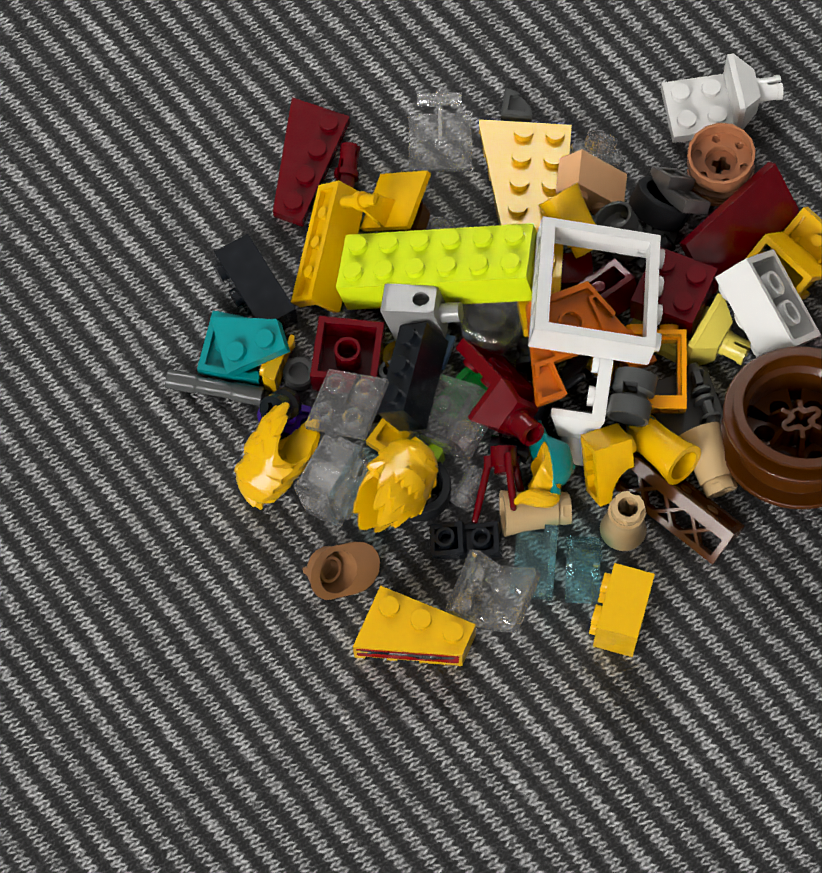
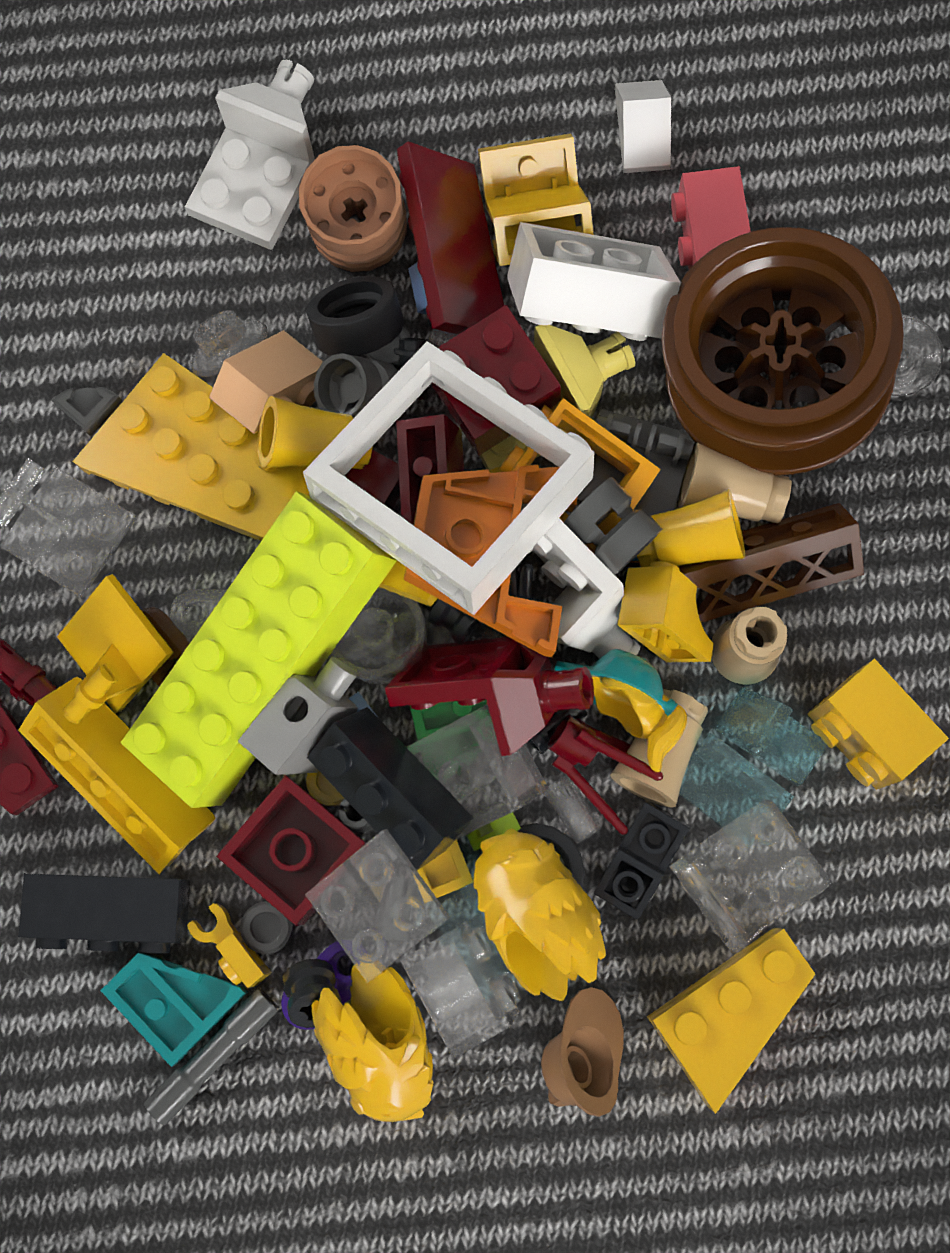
camera: 55 degrees left, 10 degrees up
(248, 342) = (185, 975): teal wing -> none
(677, 189) = (351, 283): flat silver slope -> none

